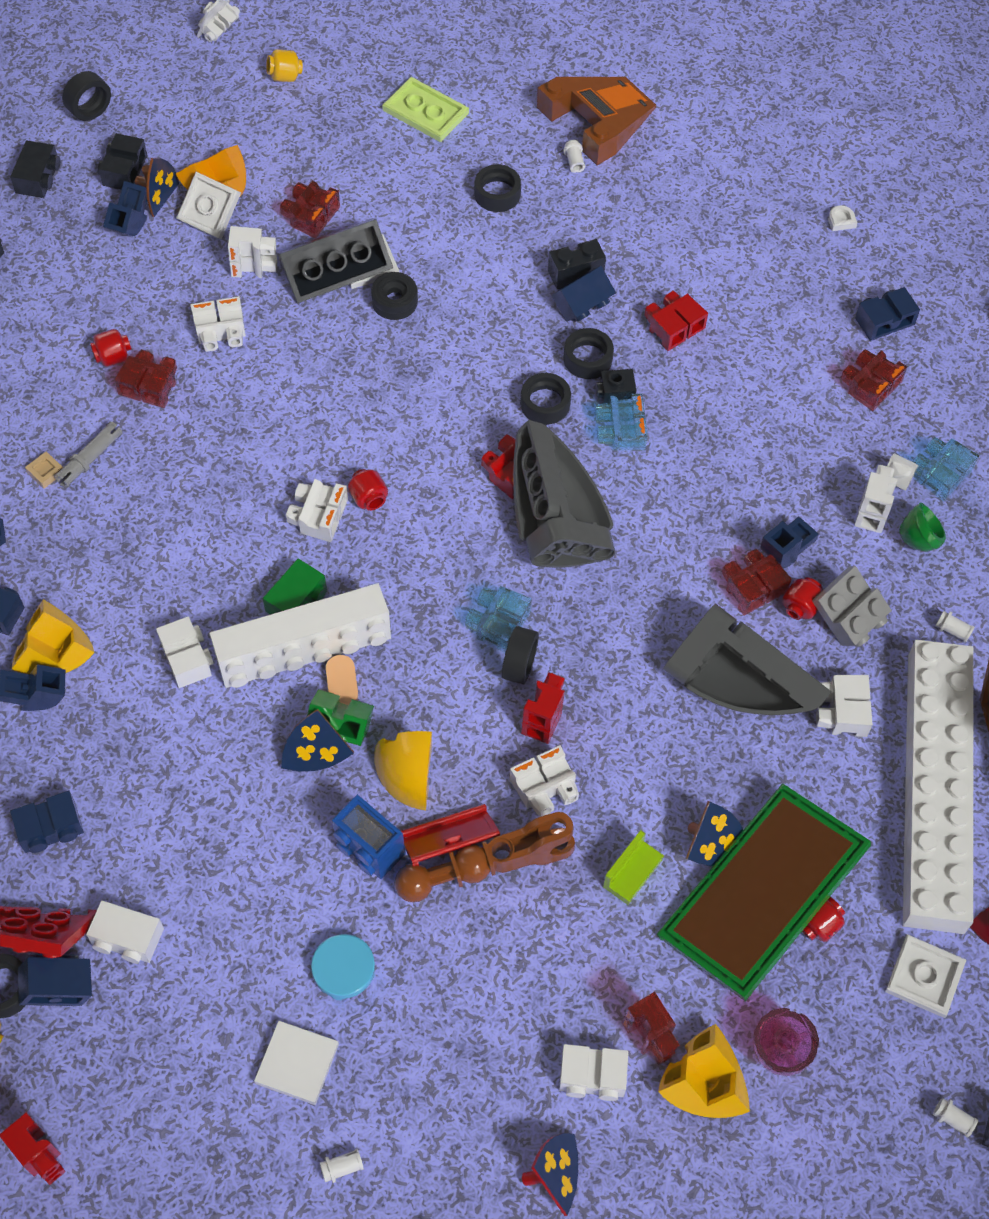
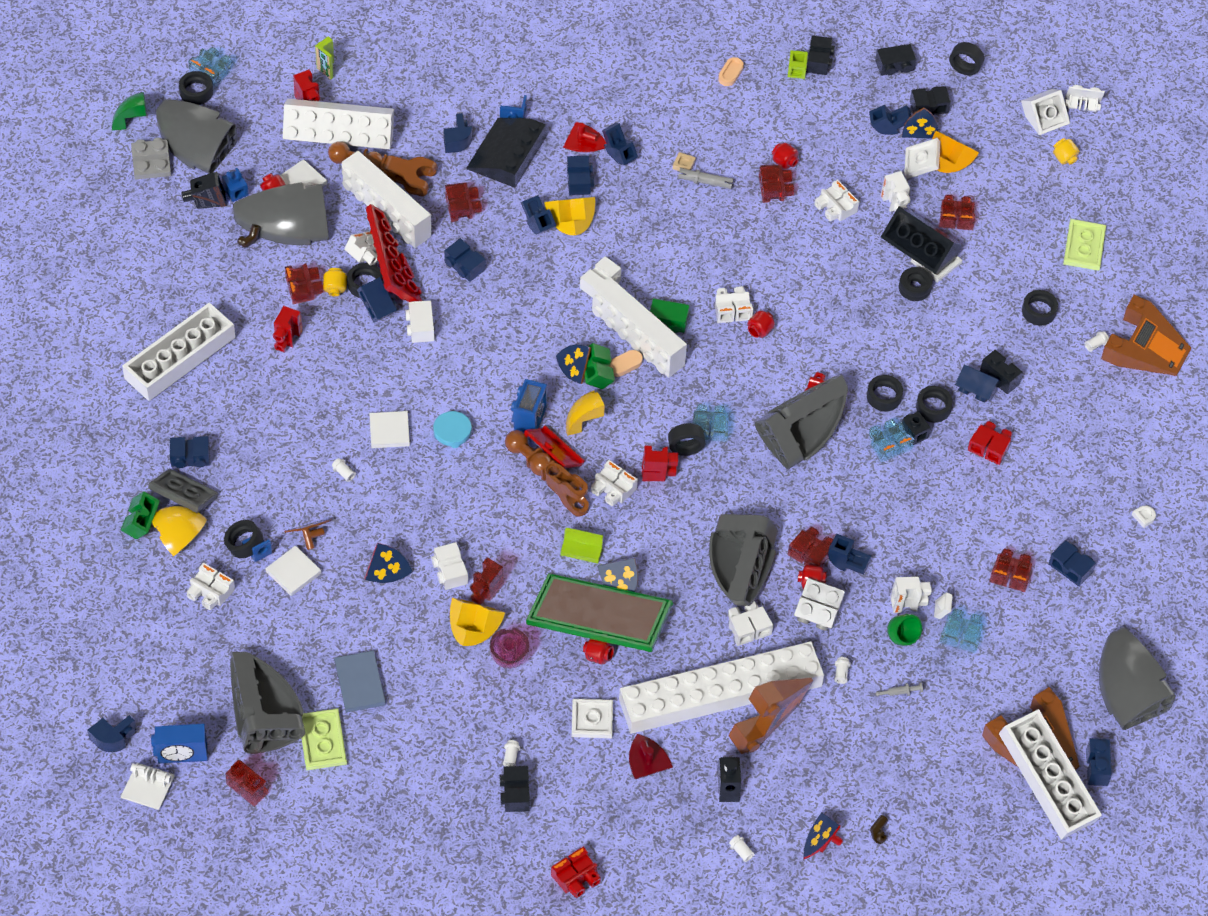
camera: 65 degrees right, 5 degrees down
(210, 58) = (1046, 111): none -> white slope

